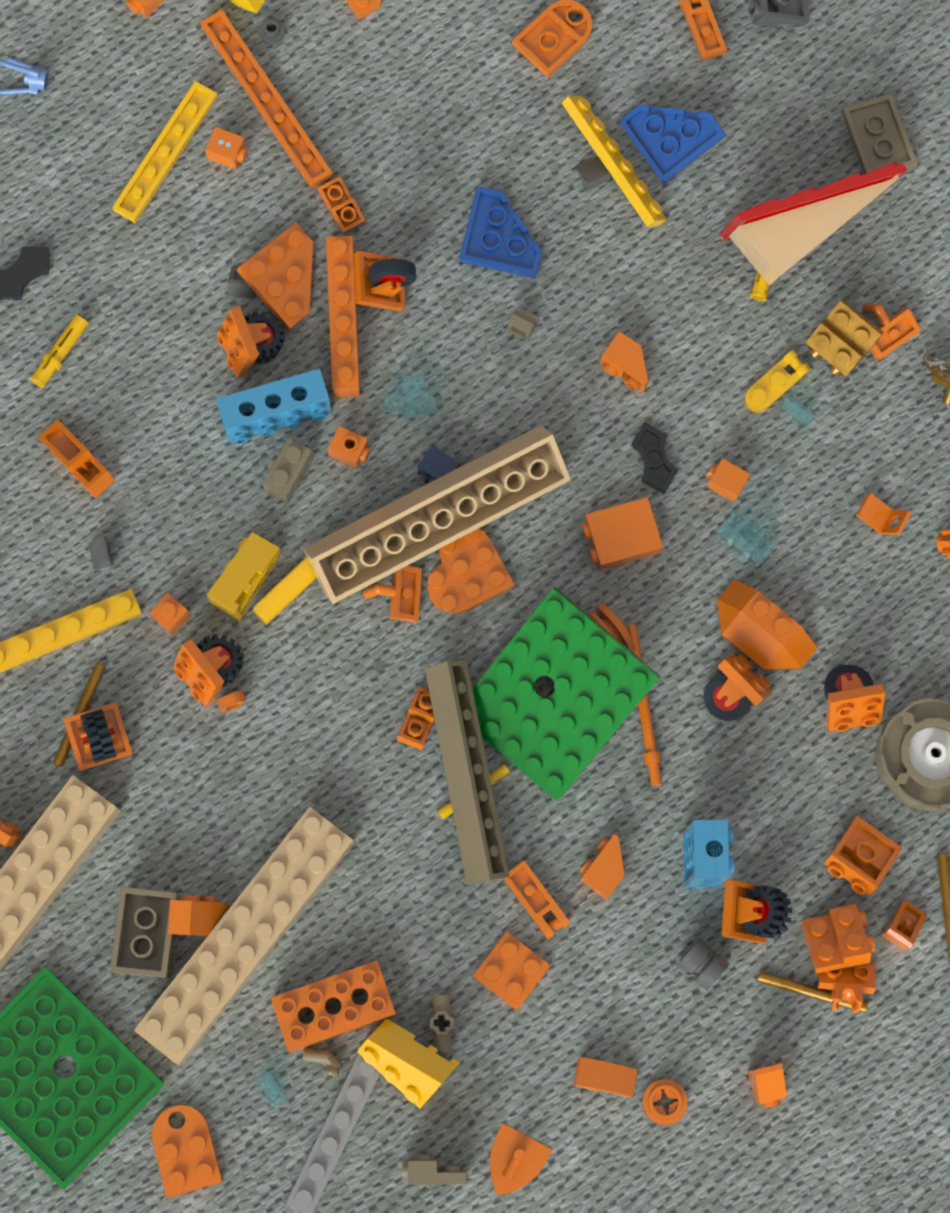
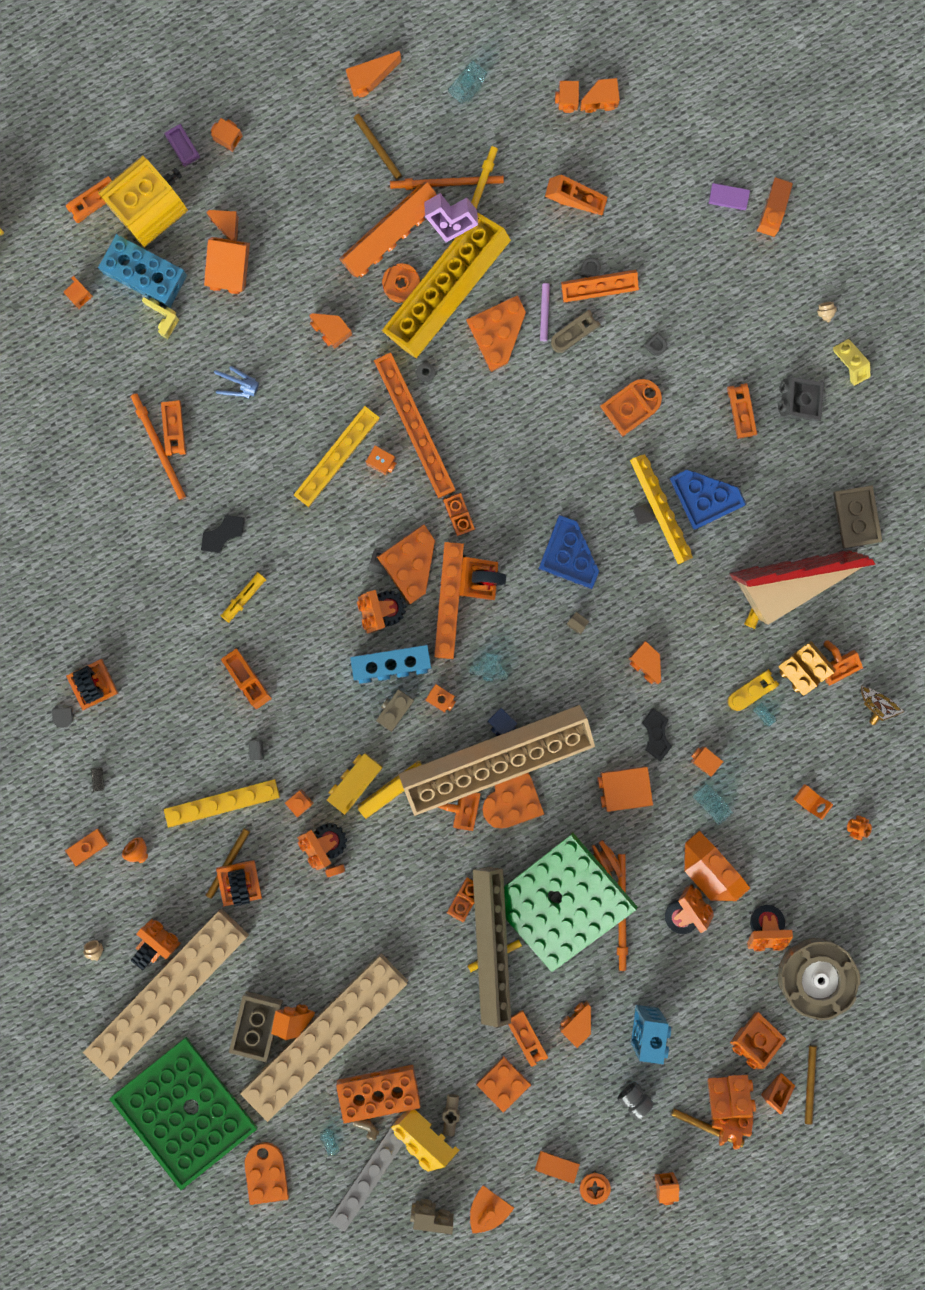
camera: 10 degrees right, 10 degrees up
(754, 911) = (678, 1073): plate -> none

